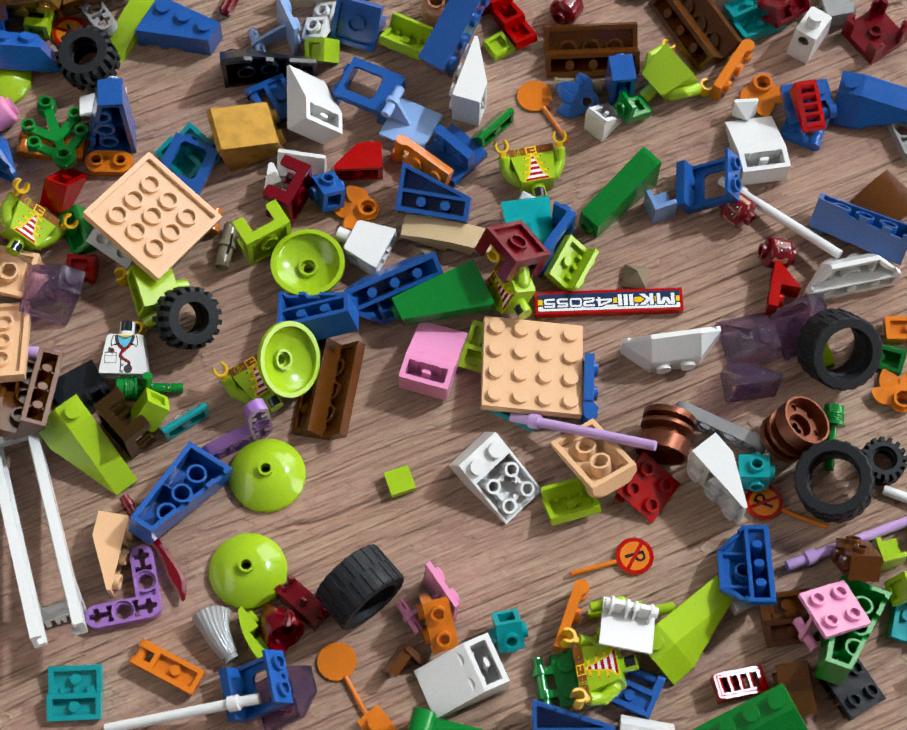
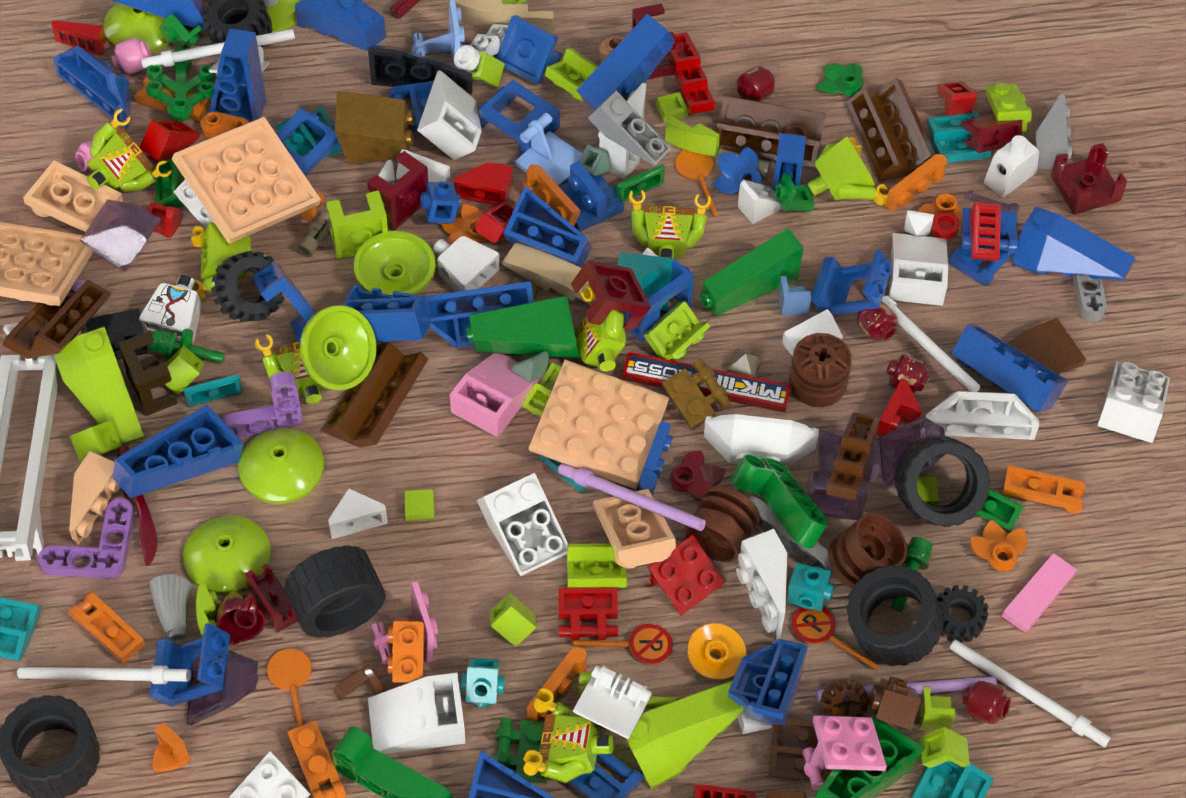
camera: 15 degrees right, 10 degrees down
(36, 83) = (176, 33): none -> green bracket
(36, 109) = (169, 58): none -> white bar
(98, 496) = (96, 439): none -> lime panel
(216, 314) = (272, 281): none -> blue window
(307, 45) = (466, 58): none -> white tile
(349, 505) = (356, 514): none -> white slope
(383, 197) = (494, 221): none -> red slope
(450, 117) = (595, 160): none -> sand green slope
(457, 329) = (532, 367): none -> sand green slope
(478, 86) = (628, 129): none -> light grey slope
(513, 566) = (512, 619): none -> lime panel
(533, 74) = (696, 139): none -> lime slope
(572, 535) = (588, 604): none -> red plate
(600, 323) = (689, 399): none -> pearl gold plate
(629, 390) = (699, 475): none -> dark red plate
(685, 237) = (819, 323): none -> white slope
(699, 541) = (720, 640): none -> light orange dish
(704, 281) = (820, 369): none -> copper wheel
(711, 397) = (783, 496): none -> green beam
(761, 347) = (853, 456): none -> reddish brown slope
(768, 104) = (945, 225): none -> red tile
(803, 563) = (834, 694): none -> reddish brown gear
(818, 72) = (971, 195): none -> hinge

